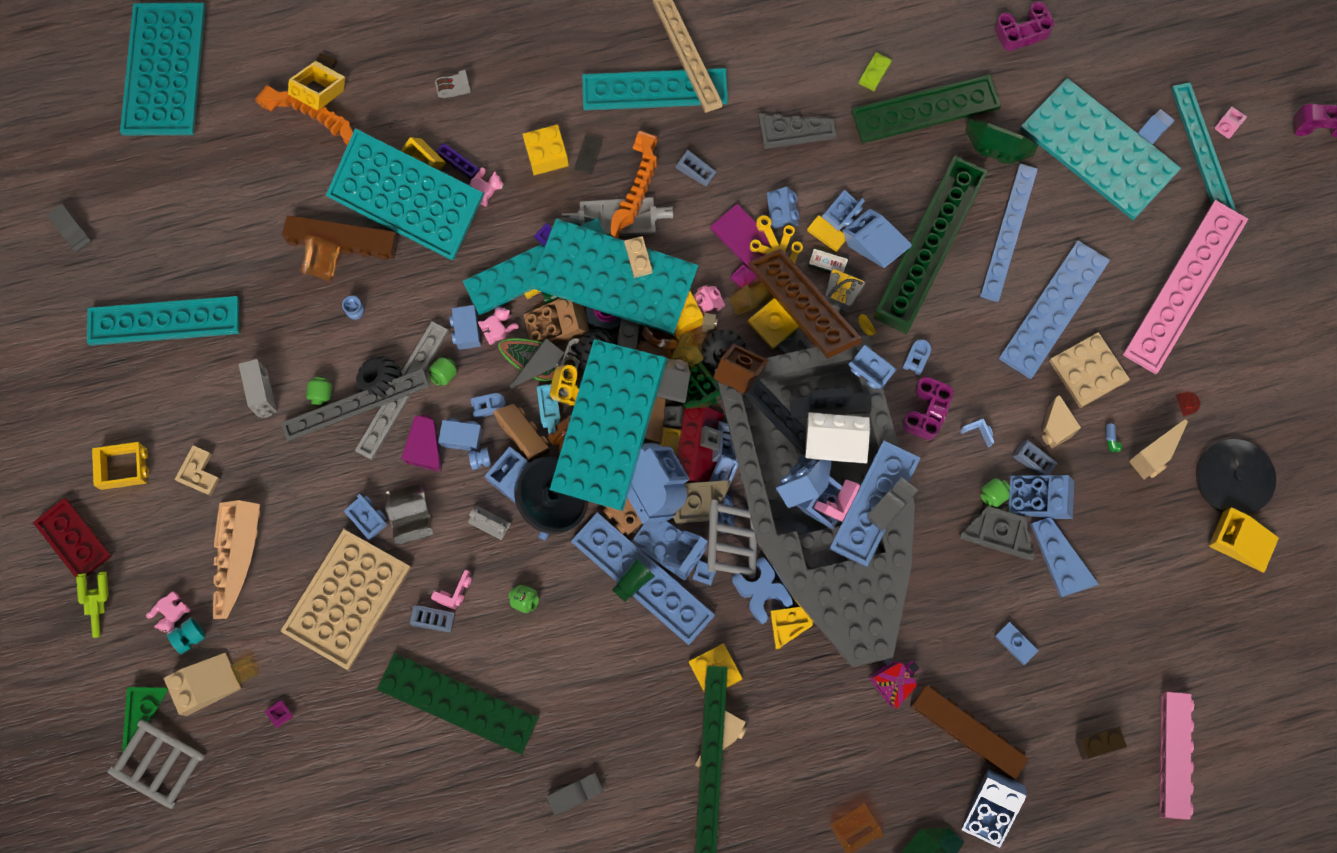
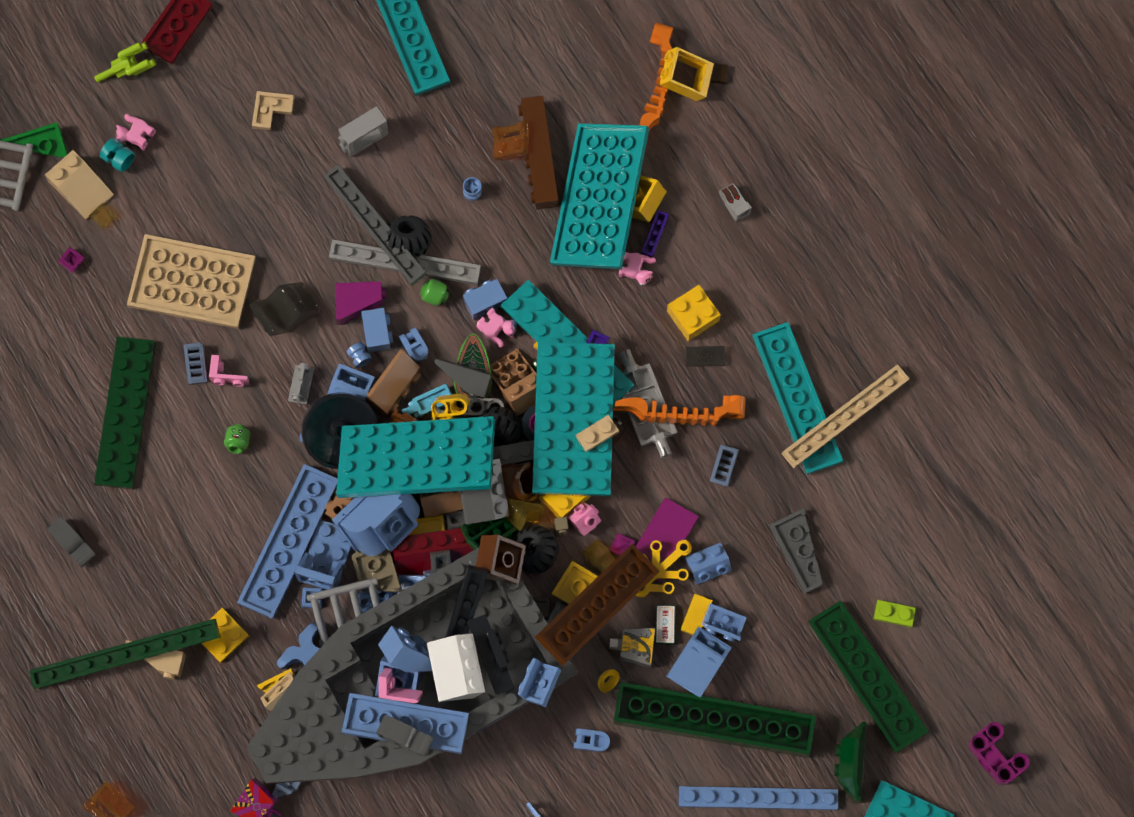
camera: 70 degrees right, 0 degrees up
(100, 466) = (248, 23): yellow window -> none
(235, 543) = (218, 165): light nougat wedge -> none
(318, 391) = (380, 187): bright green head -> none
(365, 517) = (272, 271): medium blue bracket -> none
(632, 580) = (280, 530): dark green plant -> none
(792, 626) = (272, 696): none -> tan plate
(936, 411) = (539, 773): magenta beam -> none

